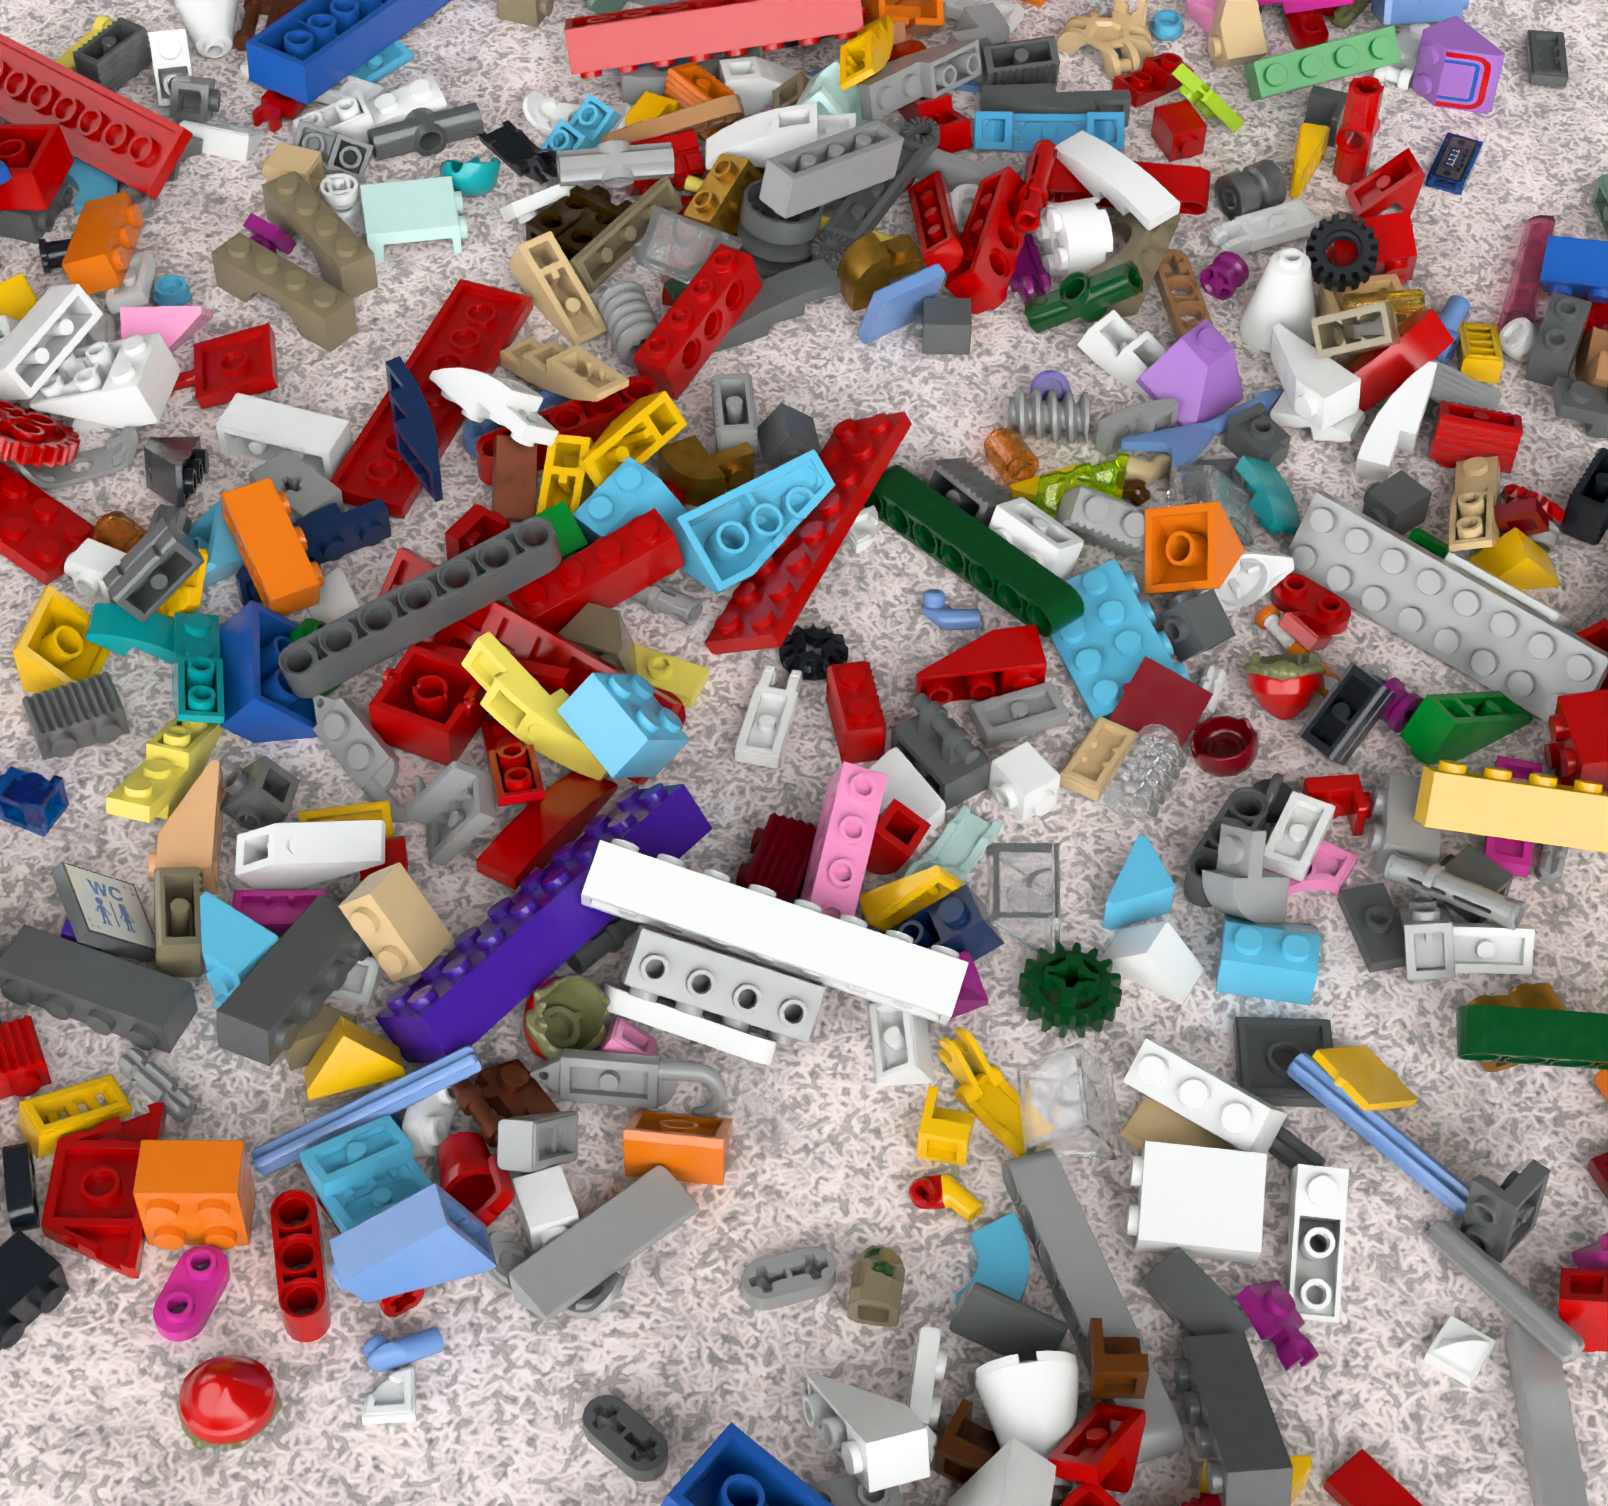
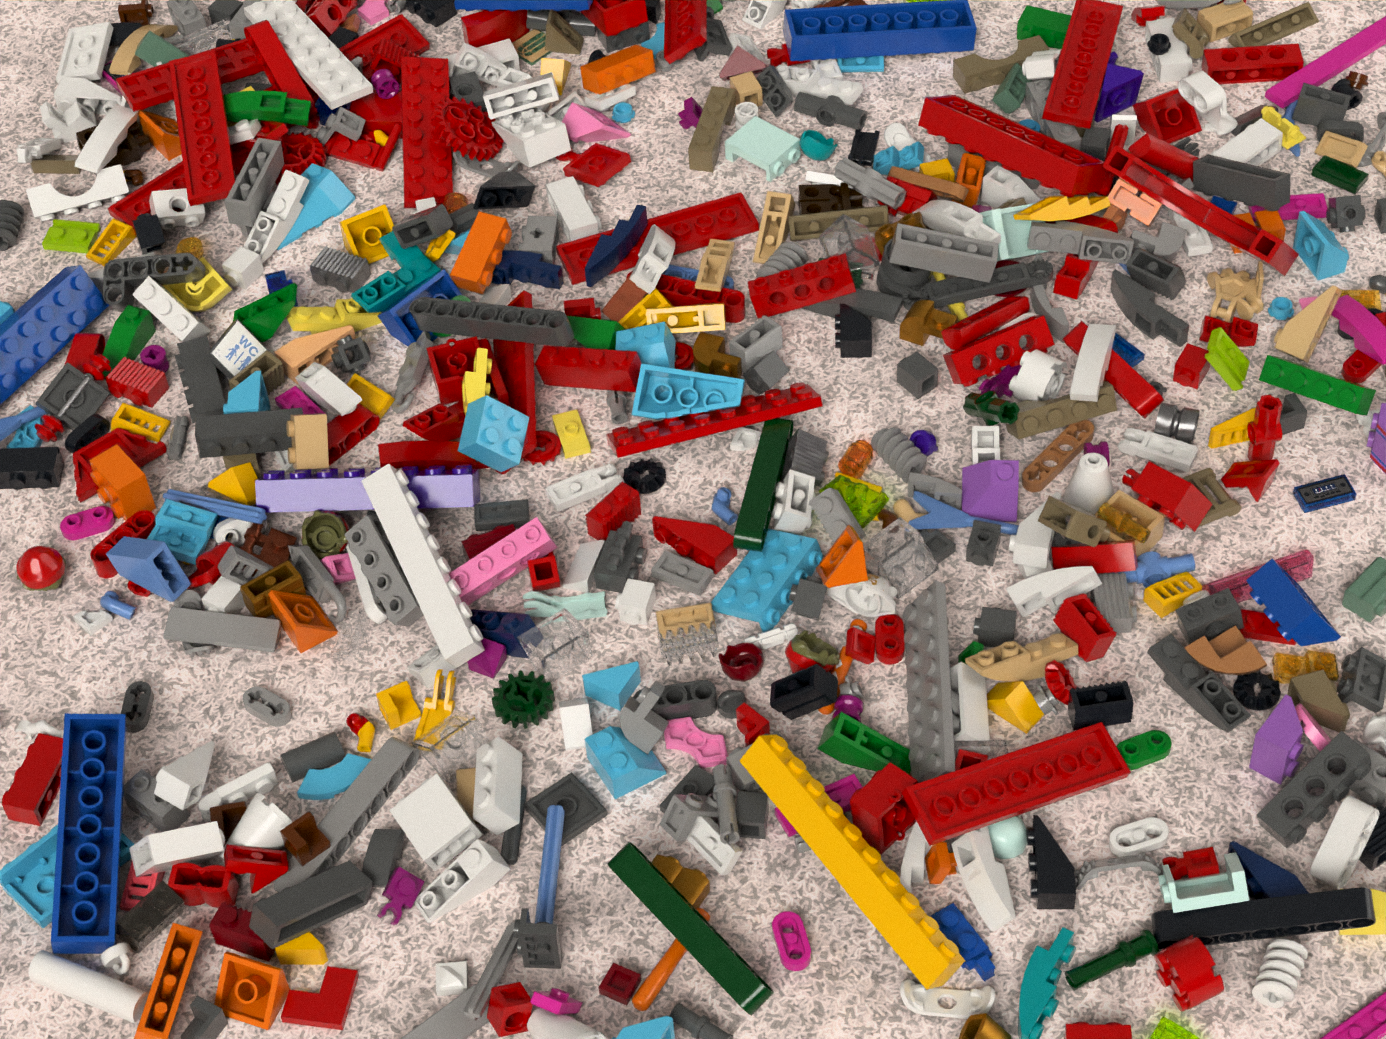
camera: 55 degrees right, 0 degrees up
(87, 821) = (267, 313): none -> green slope
(194, 98) = (749, 24): dark grey brick -> none
(250, 142) = (740, 63): none -> slope
(316, 307) = (661, 145): dark tan arch -> none
(454, 809) = (403, 409): light grey bracket -> none
(597, 1139) = (280, 578): none -> pearl gold brick
(603, 634) = (556, 399): dark tan slope -> none
(732, 818) = (491, 515): none -> dark grey plate
(810, 334) = (854, 334): none -> black slope
(876, 1287) = (288, 736): dark tan rock -> none
(899, 302) = (898, 345): medium blue tile -> none
(907, 896) = (508, 601): yellow slope -> none
(934, 1276) = (313, 755): none -> dark grey brick
(1005, 1324) = (301, 791): dark grey slope -> none
(1020, 132) = (1114, 312): dark azure slope -> none
(1034, 194) = (1041, 339): red pin -> none
(1161, 698) = (738, 619): dark red piece -> none
(1271, 497) = (946, 568): teal slope -> none
(1297, 836) = (705, 723): white plate -> none
(1347, 230) = (1122, 470): black tyre -> none
(1365, 1078) = (577, 842): yellow piece -> none
(1523, 514) = (1031, 677): dark red plate -> none

